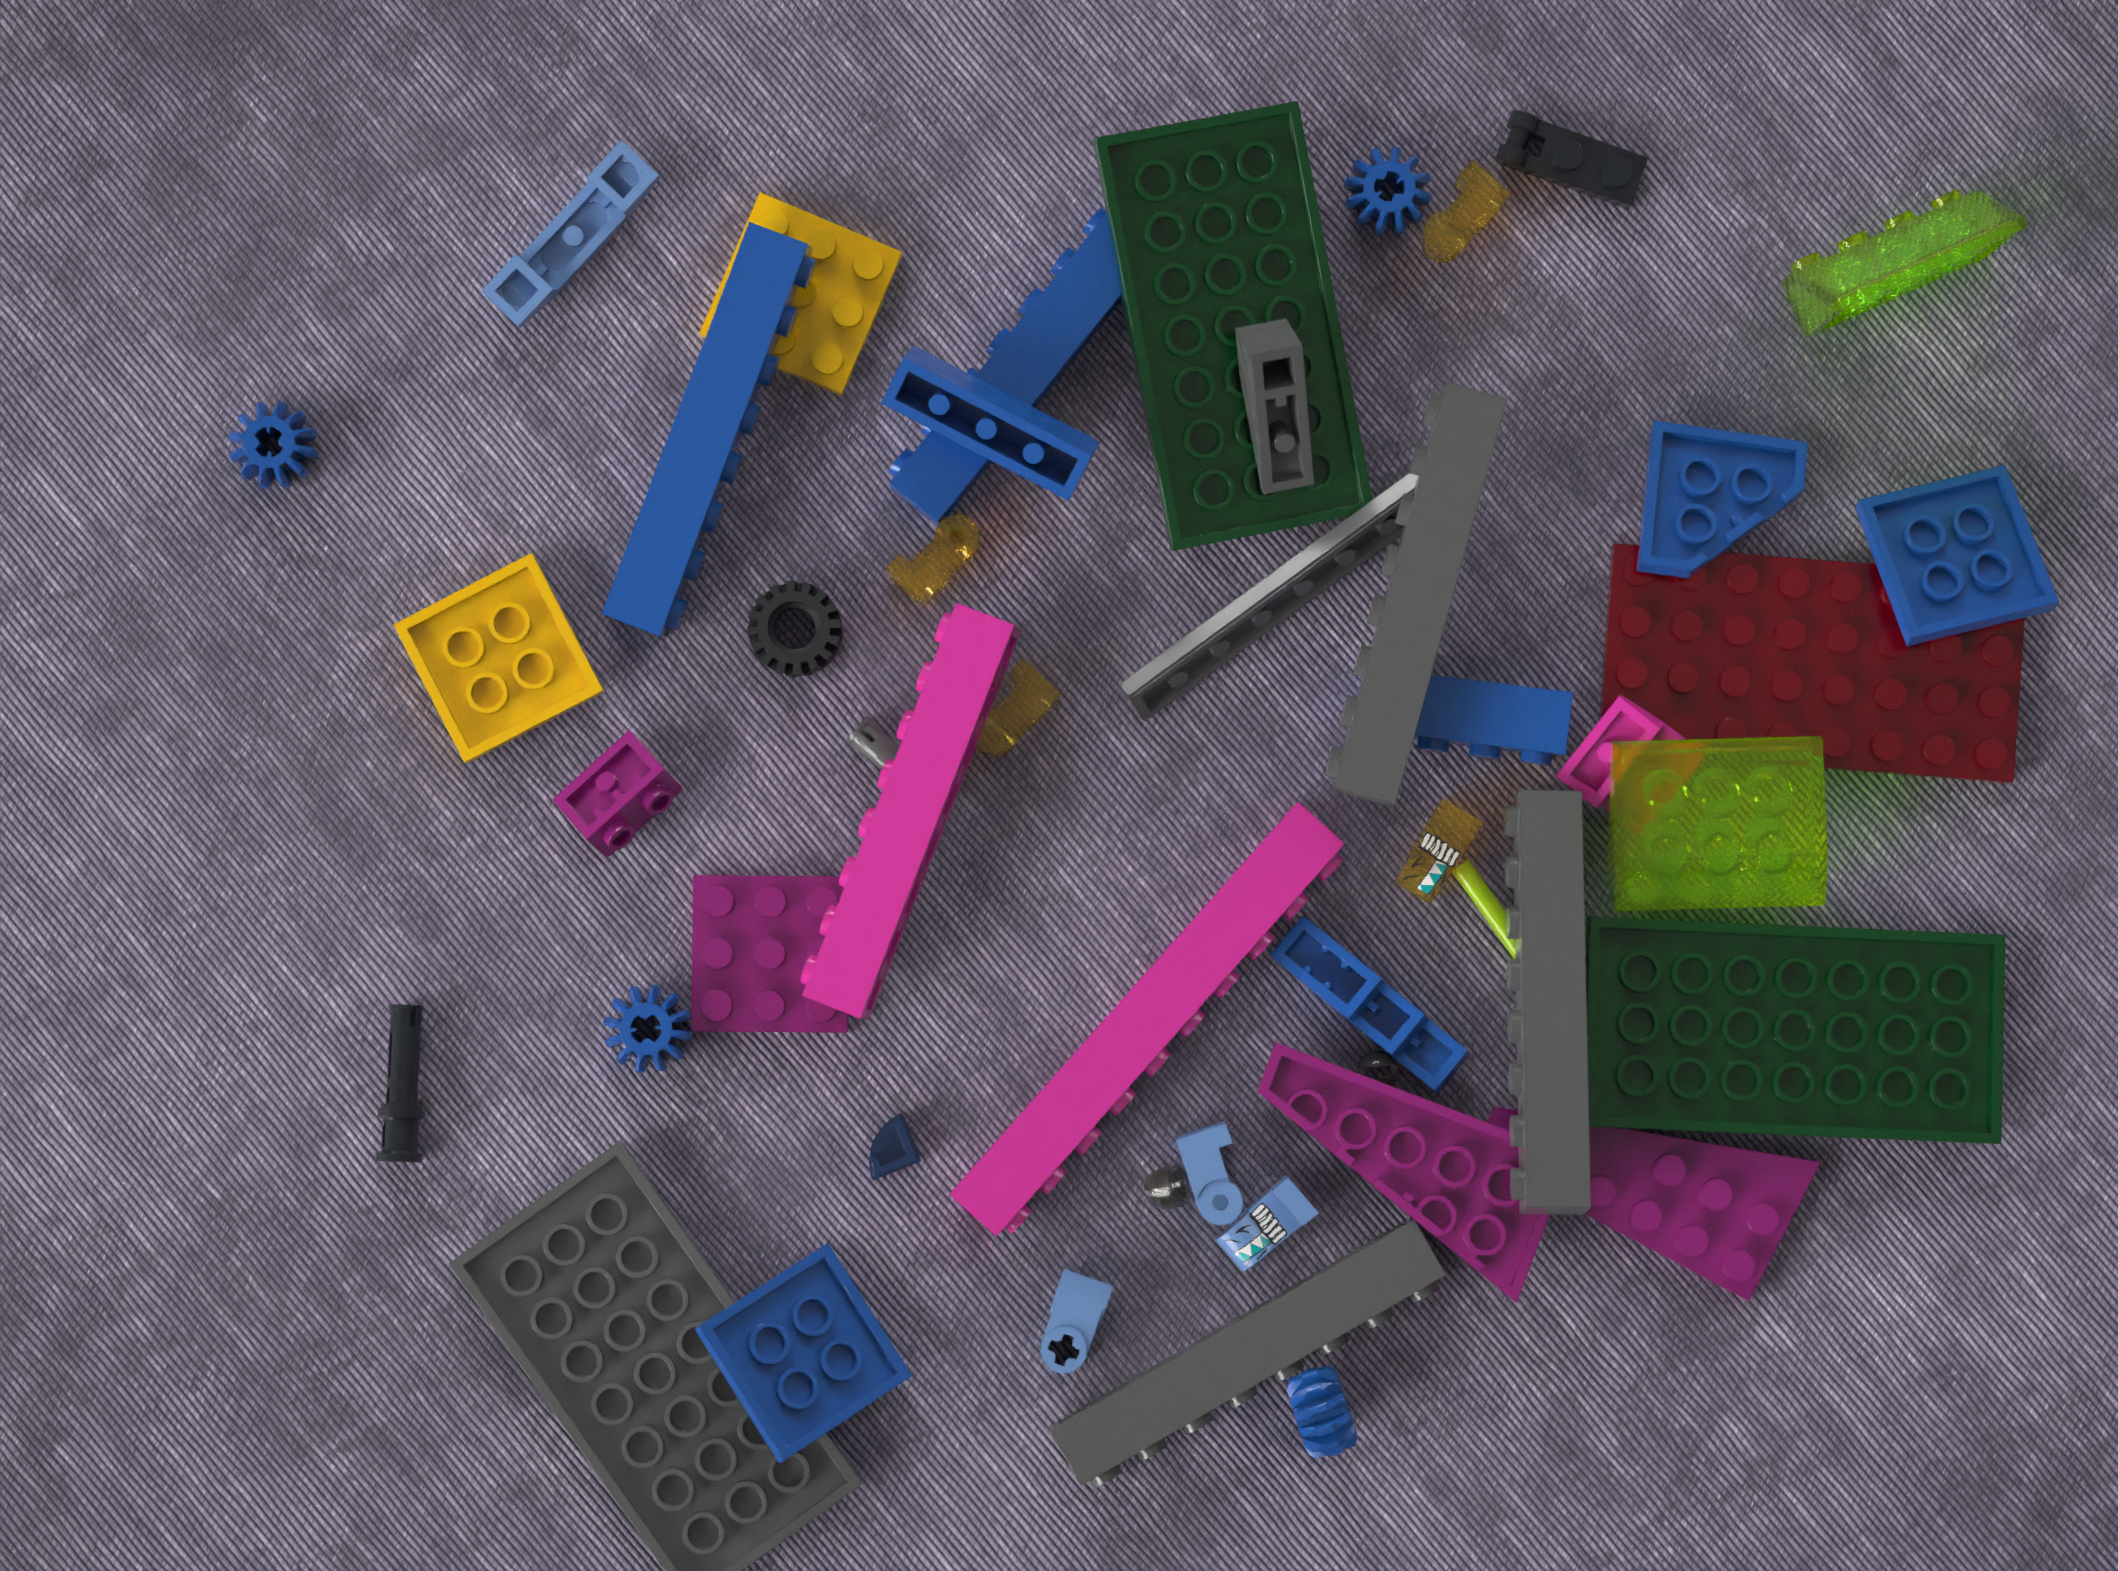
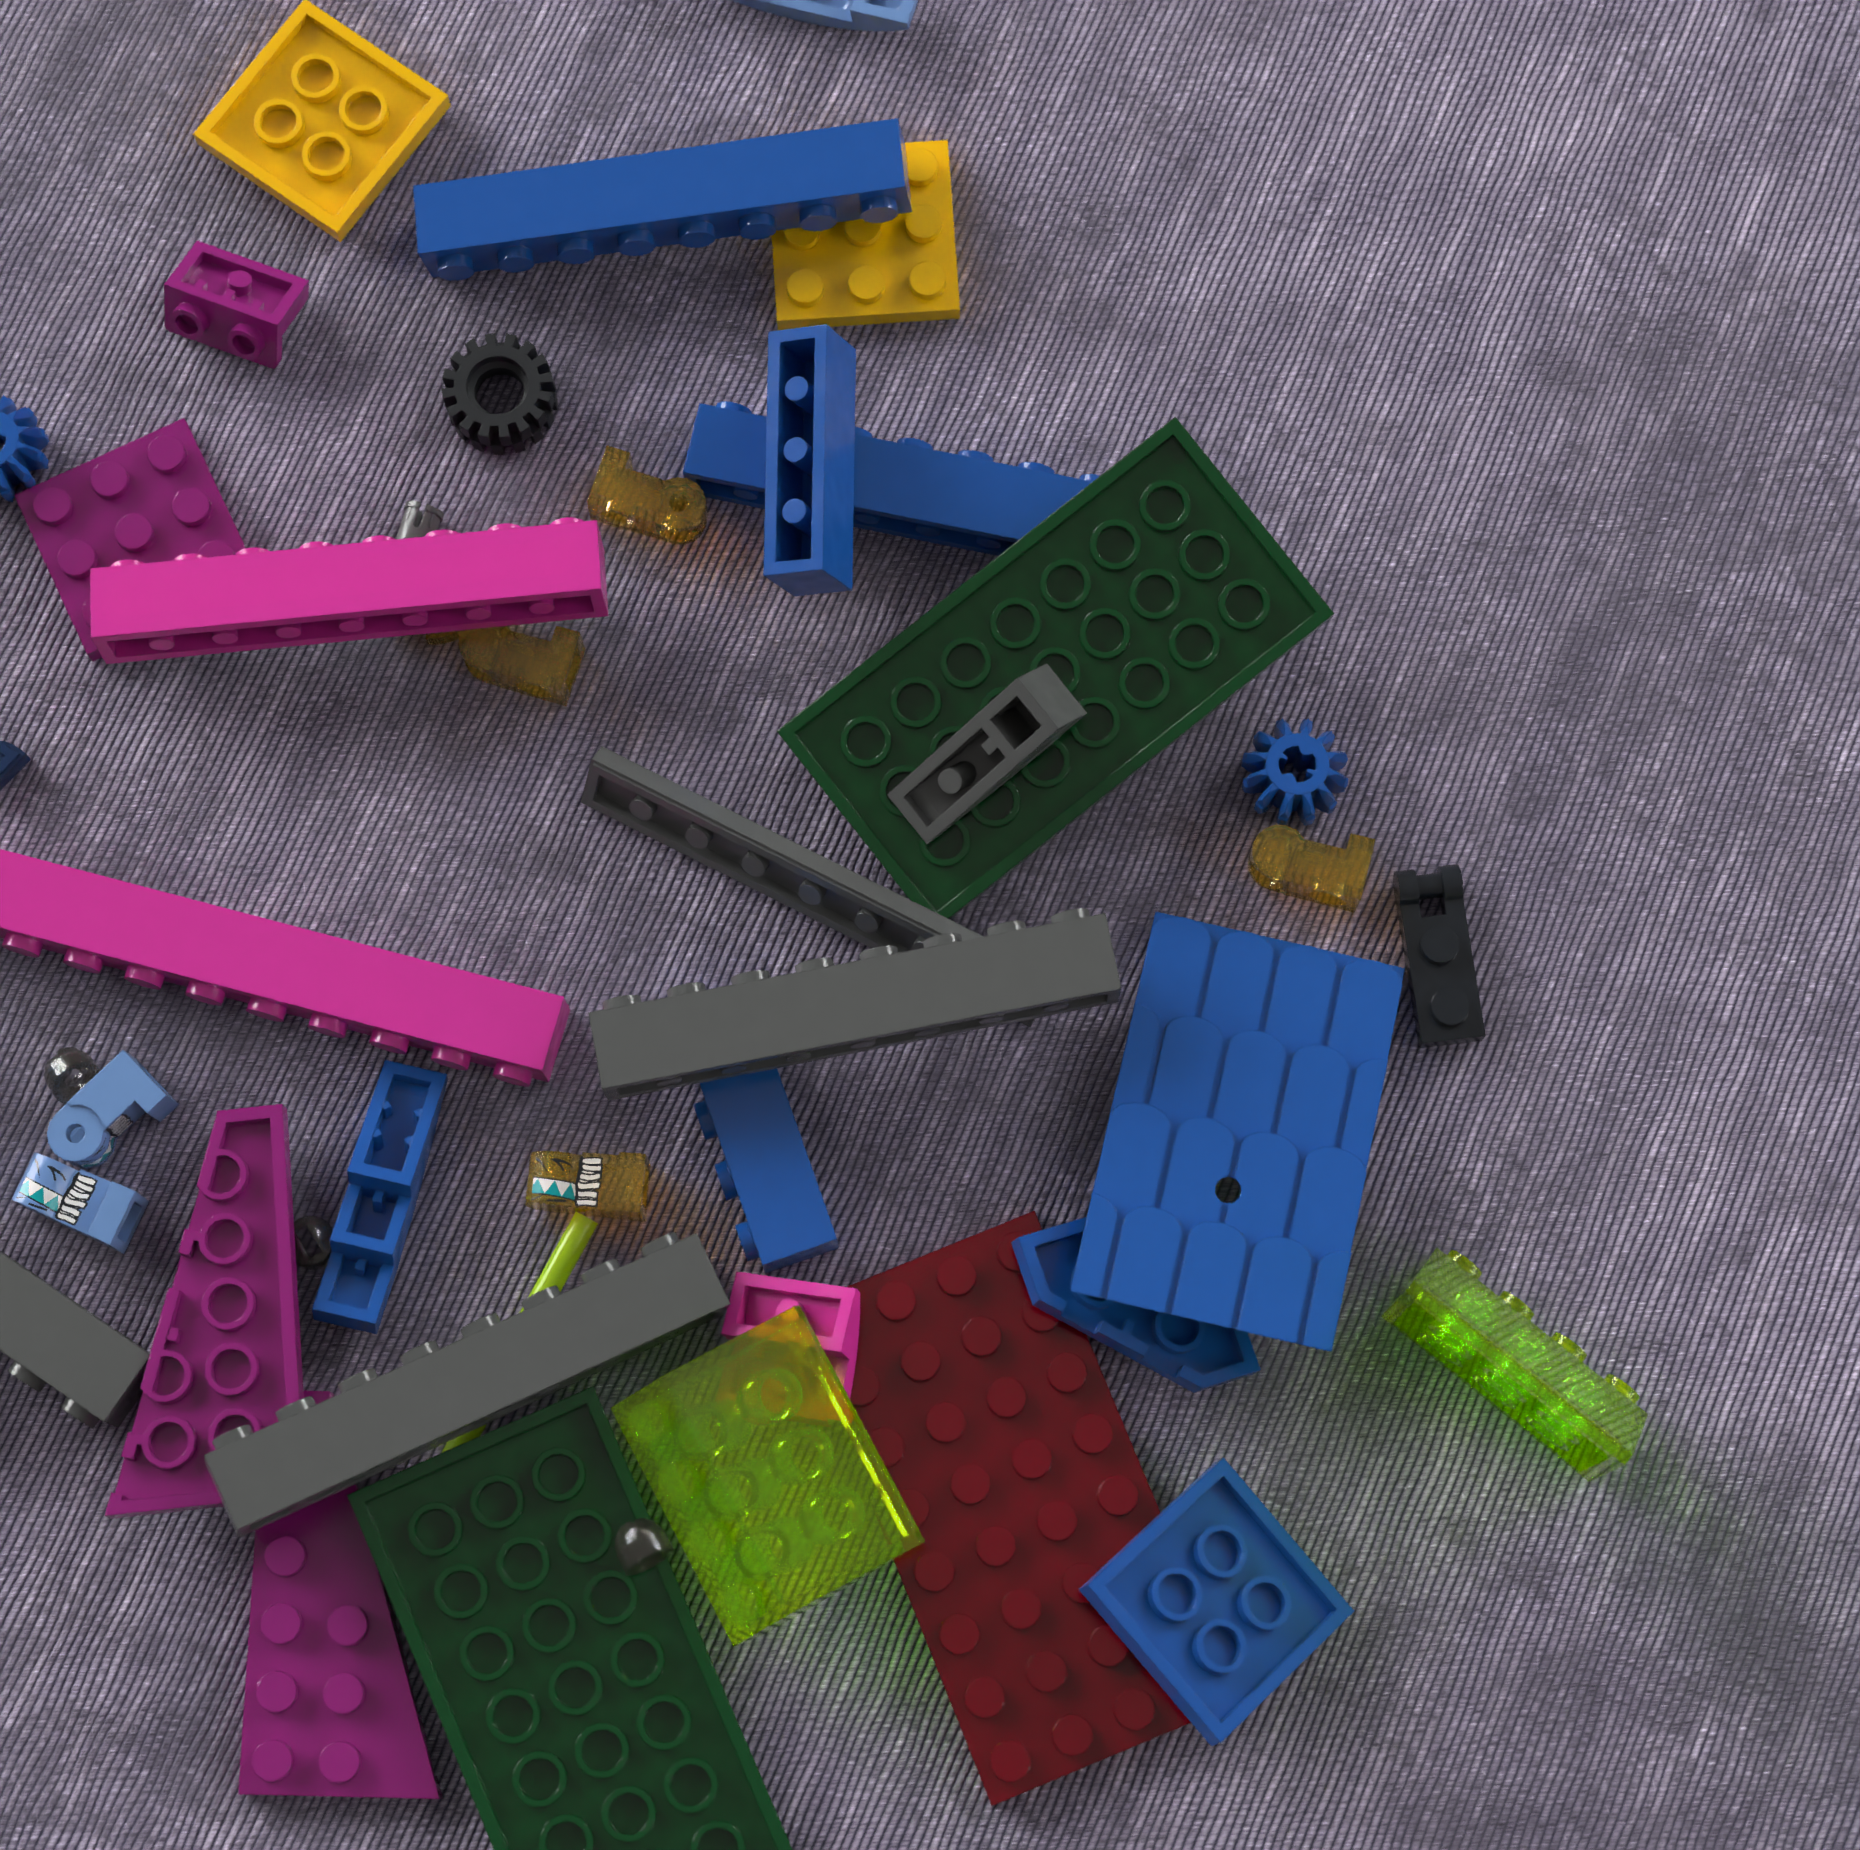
camera: 65 degrees right, 10 degrees down
(1595, 336) = (1251, 1070): none -> blue piece
(1722, 935) = (641, 1546): none -> clear smoke hinge

